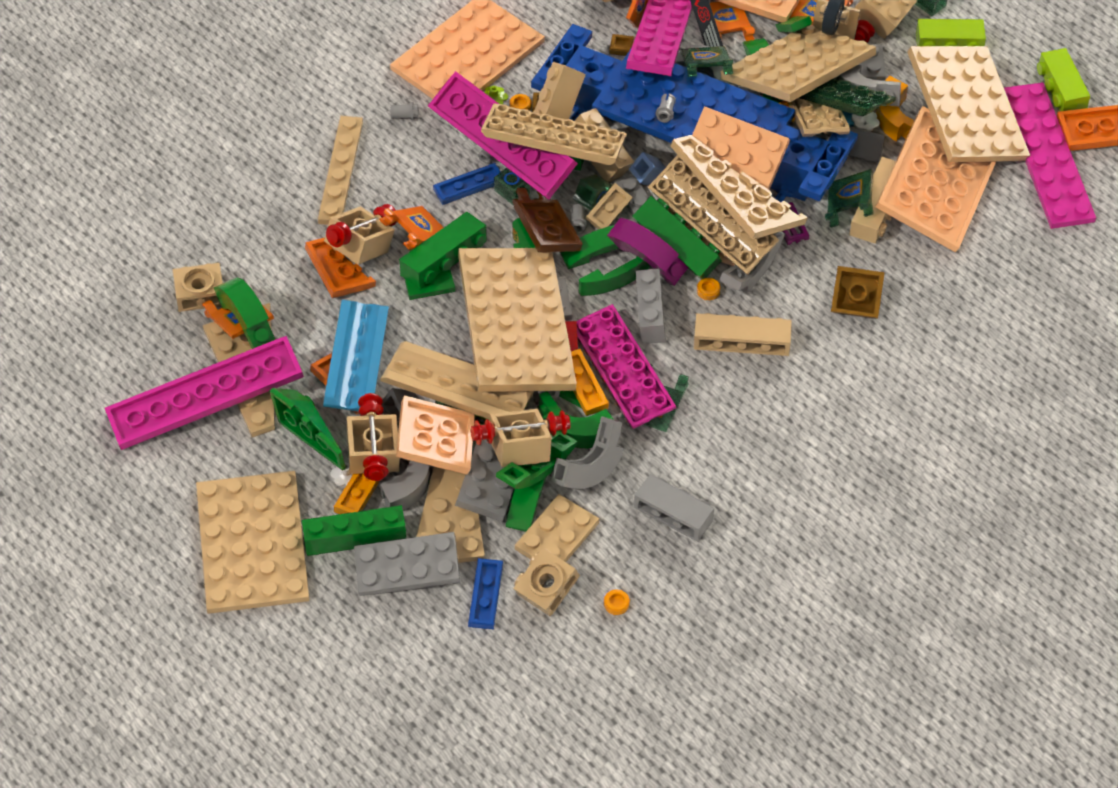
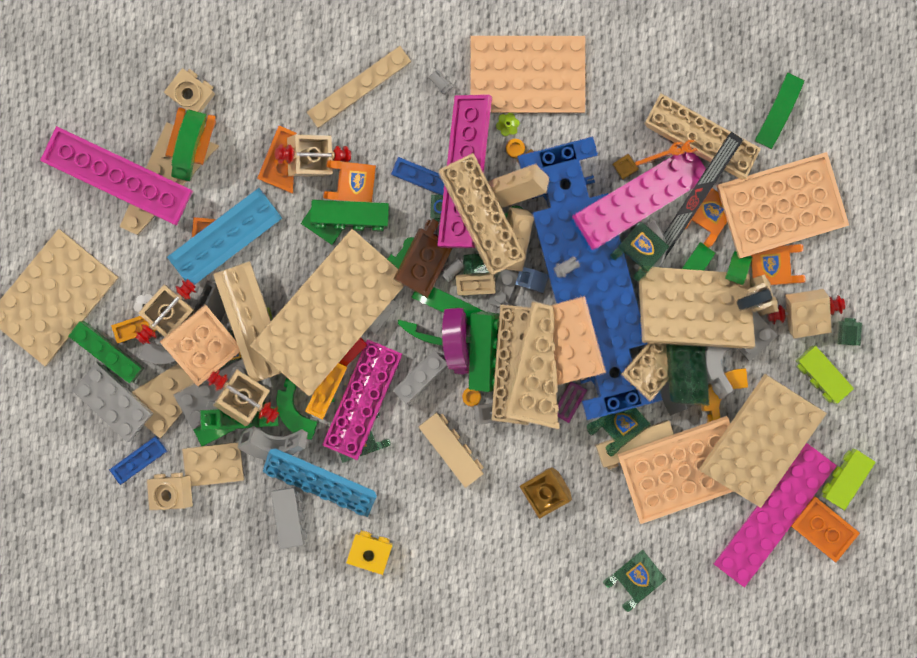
camera: 55 degrees right, 35 degrees up
(302, 419) = (152, 246): green wedge -> none
(616, 602) = (198, 537): light orange tile -> none
(667, 449) = (319, 482): none -> dark azure plate
(780, 453) = (379, 546): none -> yellow brick
(1010, 288) = (638, 577): none -> clear green flag

